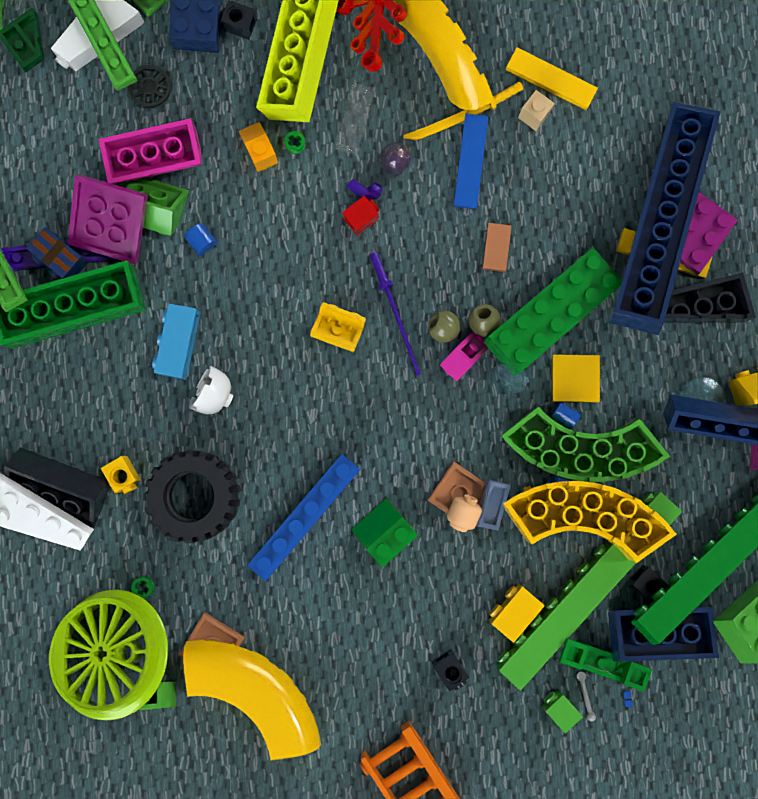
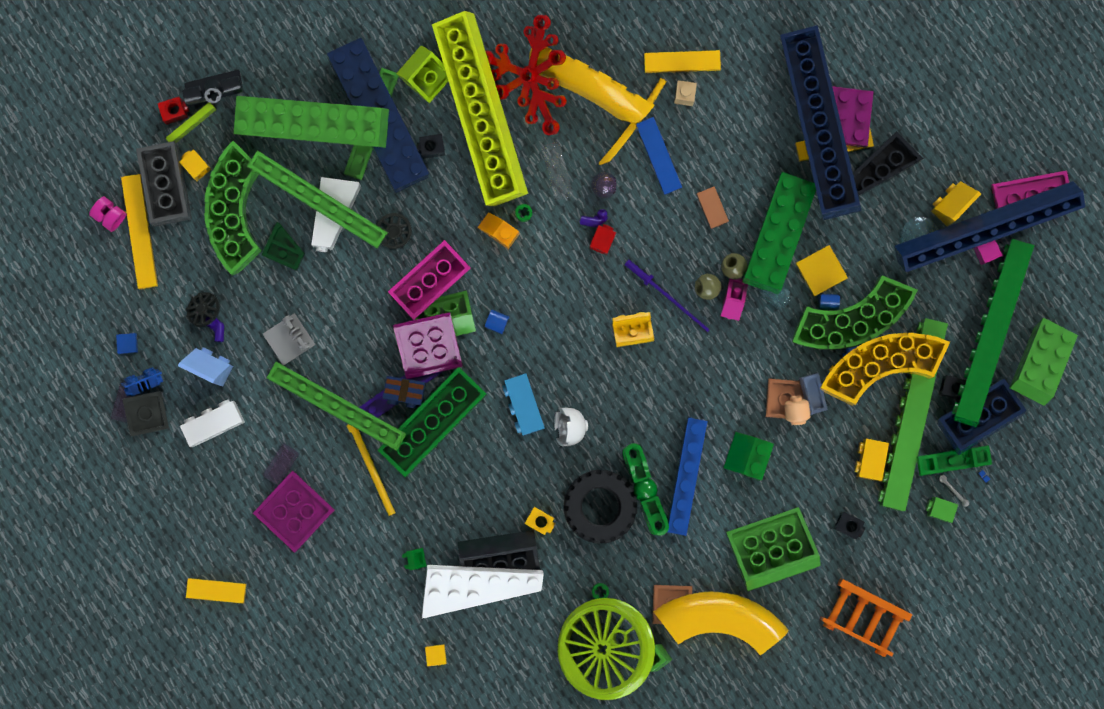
camera: 25 degrees left, 0 degrees up
(250, 507) = (645, 489): none -> green piece
(354, 648) = (773, 549): none -> bright green slope

